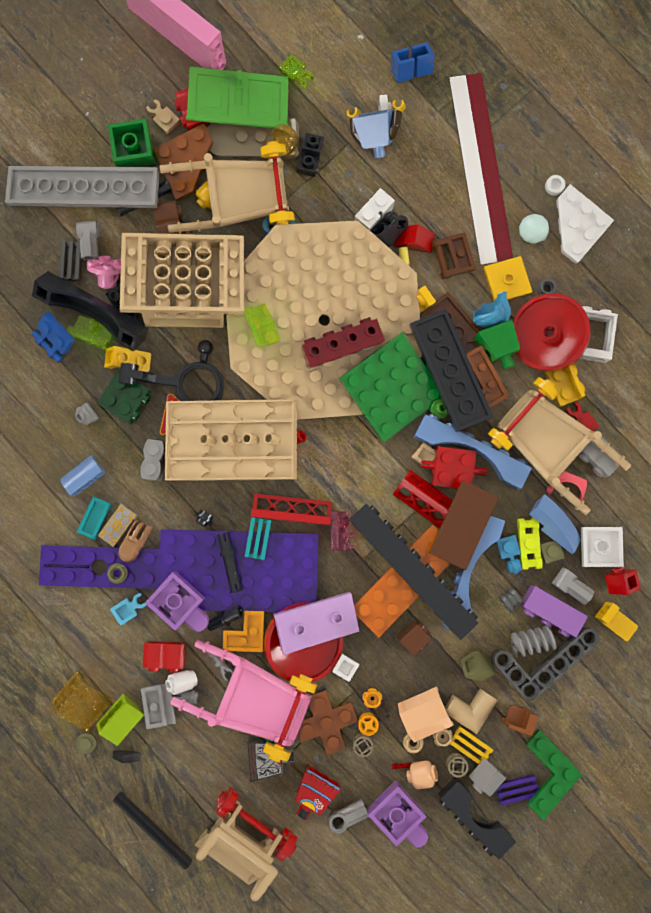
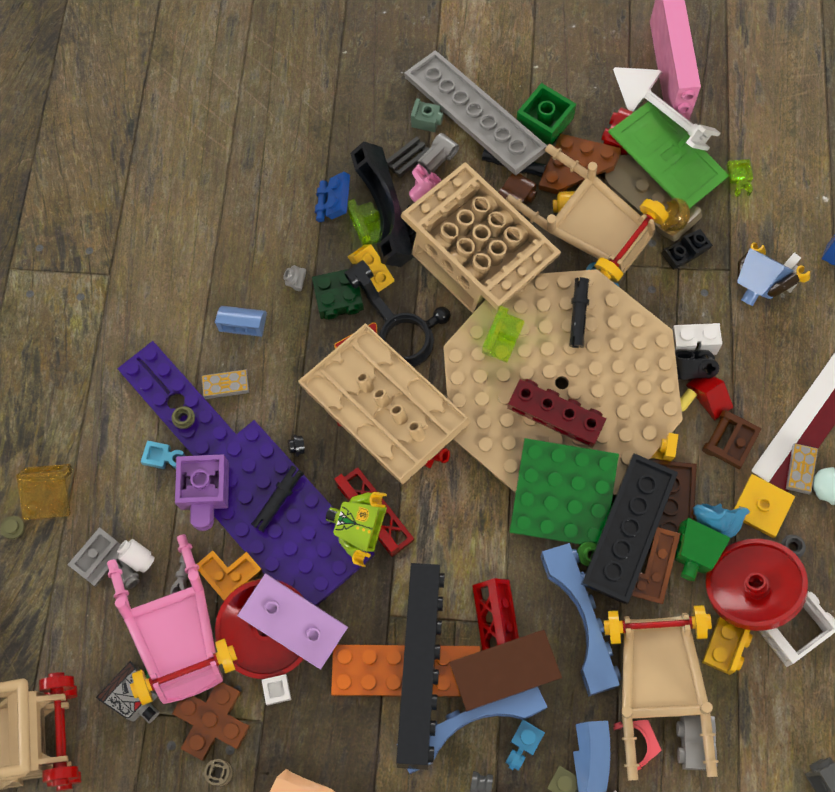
camera: 55 degrees right, 15 degrees down
(55, 225) = (426, 116): none -> sand green brick
(94, 518) = (214, 360): teal tile -> none
(119, 720) = (56, 536): lime brick -> none
(126, 756) = (28, 571): black tile -> none
(134, 541) = (223, 407): medium nougat arm -> none
(152, 466) = (302, 361): light grey brick -> none
(164, 655) = (146, 521): red brick -> none
(165, 118) = (593, 119): tan plate -> none
(172, 69) = (637, 85): none -> white piece
(226, 618) = (225, 542): black axle -> none
(250, 536) = (316, 496): teal tile -> none
(293, 264) = (580, 302): none -> black pin
(296, 529) = (358, 524): none -> lime torso
(315, 792) = (136, 768): red torso -> none
(339, 530) = (393, 568): clear pink plate -> none
(368, 727) = (237, 760): light orange wheel -> none
(372, 703) = (263, 742): light orange plate -> none
(414, 637) = (360, 724): reddish brown brick -> none
(424, 452) = (534, 581): tan tile -> none
(453, 466) = (549, 611): red plate -> none
(508, 234) = (801, 468): none -> light grey tile
(529, 543) = (550, 755): neon yellow plate -> none
(584, 418) = (714, 695): red plate -> none

